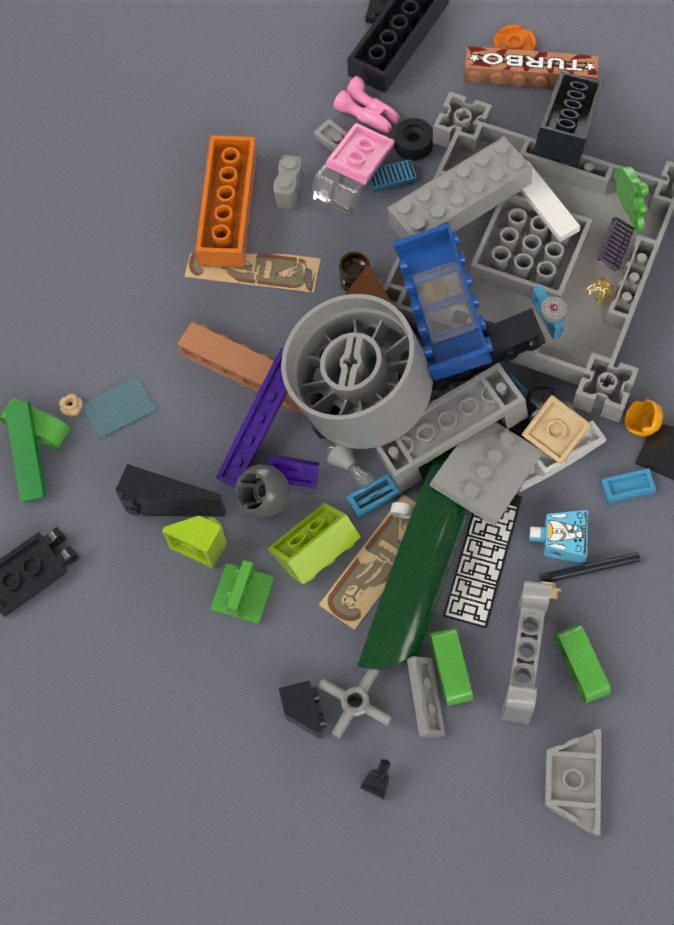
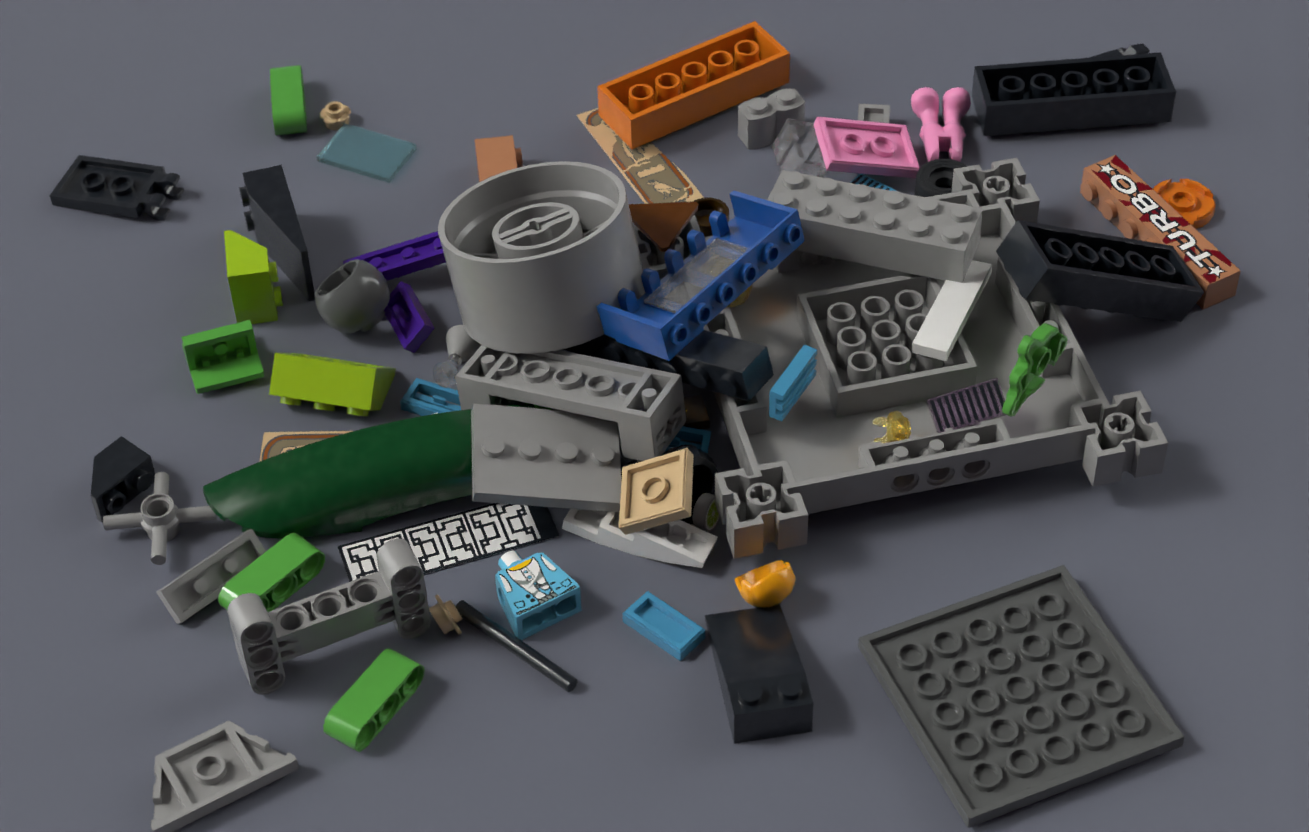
camera: 50 degrees right, 20 degrees down
(25, 452) = (245, 106): green tile -> none
(377, 780) = (77, 588): black piece -> none
(553, 309) = (788, 371): light grey tile -> none

